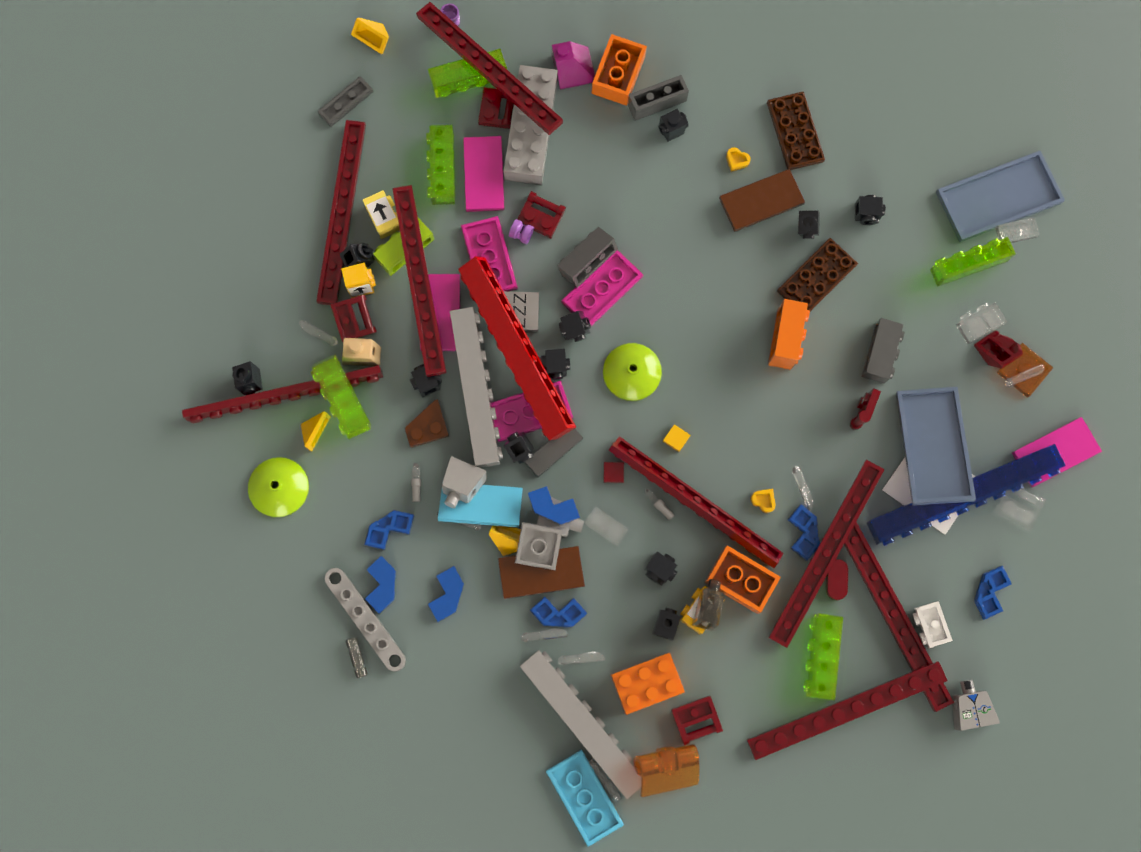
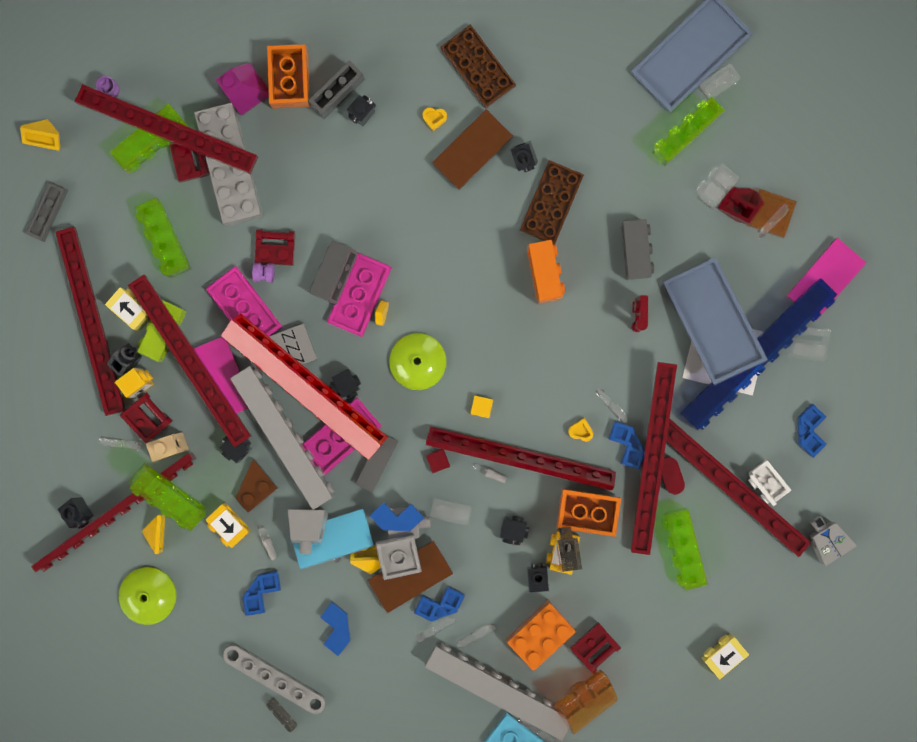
camera: 10 degrees left, 10 degrees up
(385, 592) = (275, 634): blue tile -> none
(386, 450) = (227, 525): none -> brick
(483, 173) = (205, 229): dark pink tile -> none
(519, 447) = (344, 475): black brick -> none
(575, 326) = (349, 343): black brick -> none
(616, 311) = (381, 312): none -> yellow tile
(824, 782) = (724, 655): none -> brick
(846, 710) = (721, 587): dark red plate -> none
(869, 209) = (575, 118): black brick -> none

